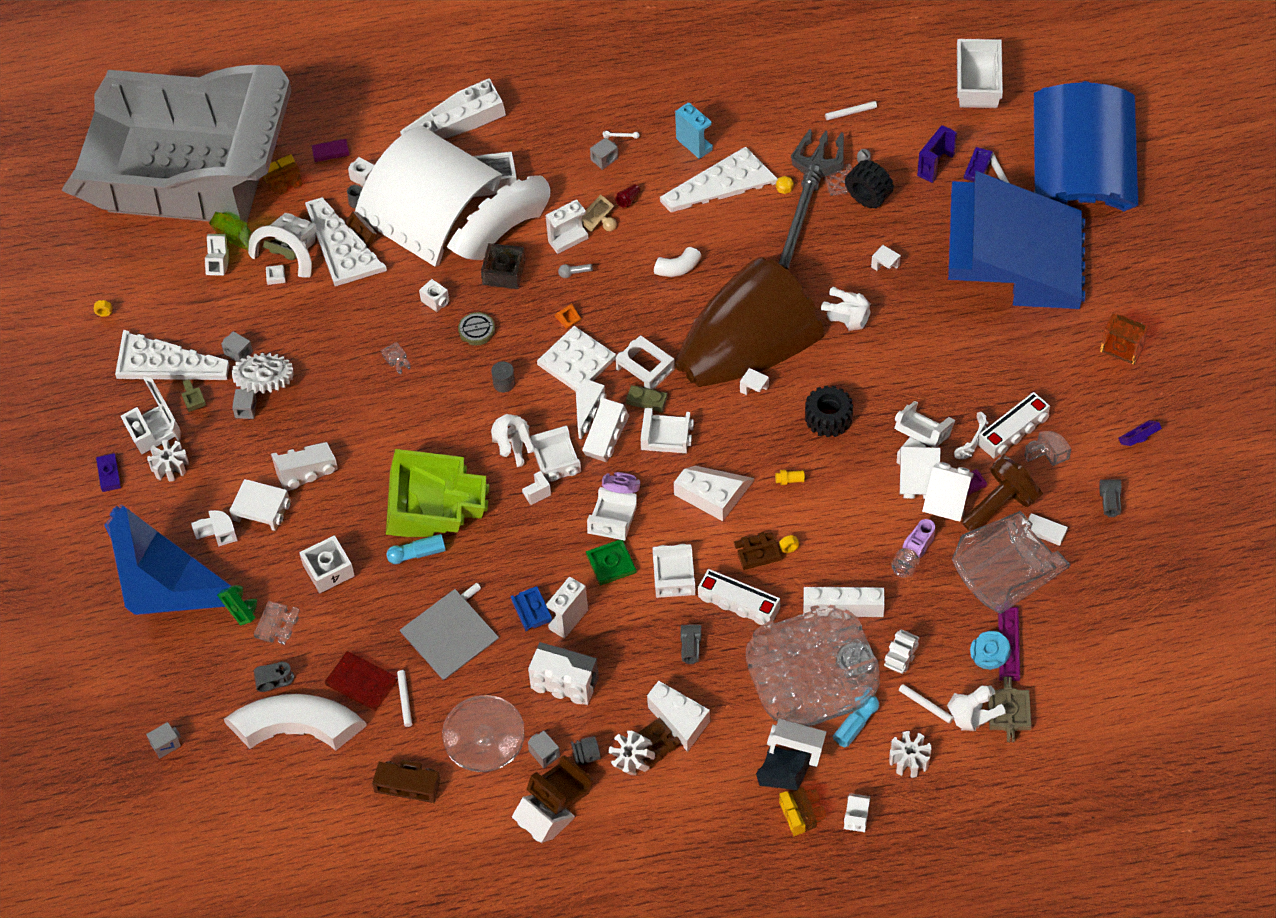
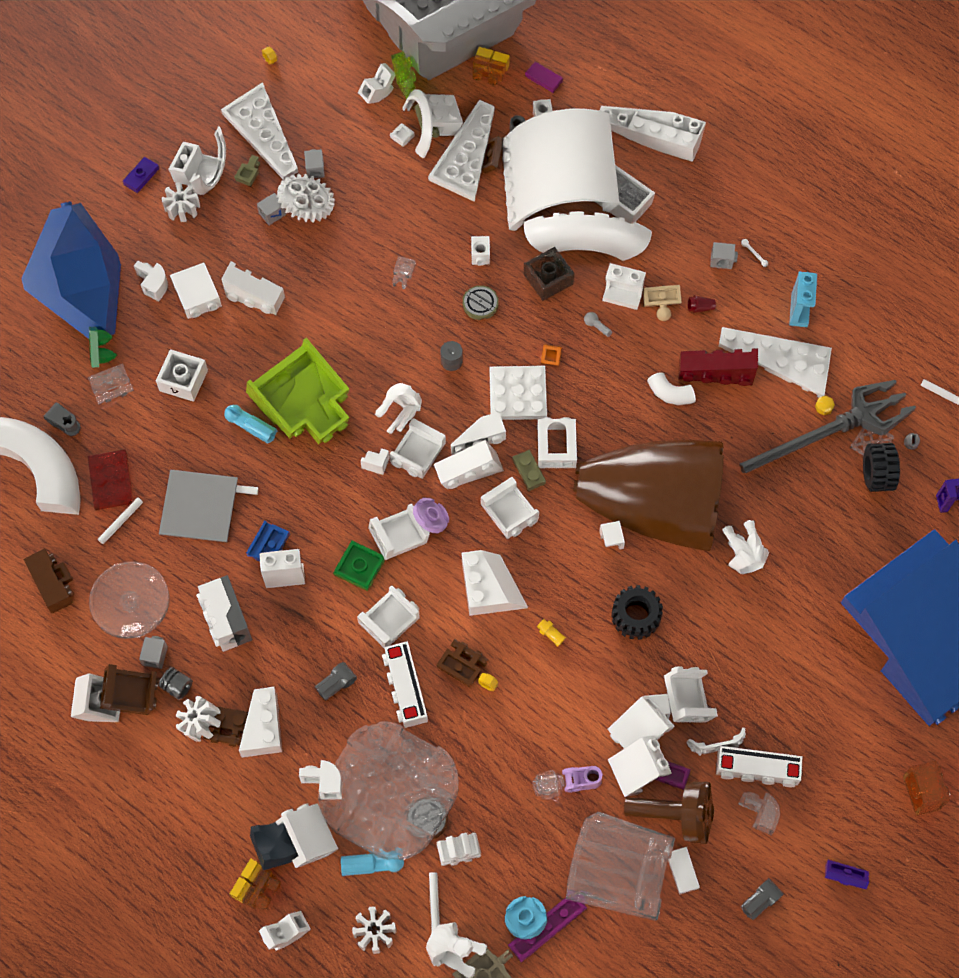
camera: 45 degrees right, 10 degrees up
(691, 219) = (719, 366): none -> dark red wedge
(769, 691) = (328, 778): none -> white brick
(857, 600) = (470, 767): white brick -> none
(885, 257) = (824, 537): white panel -> none

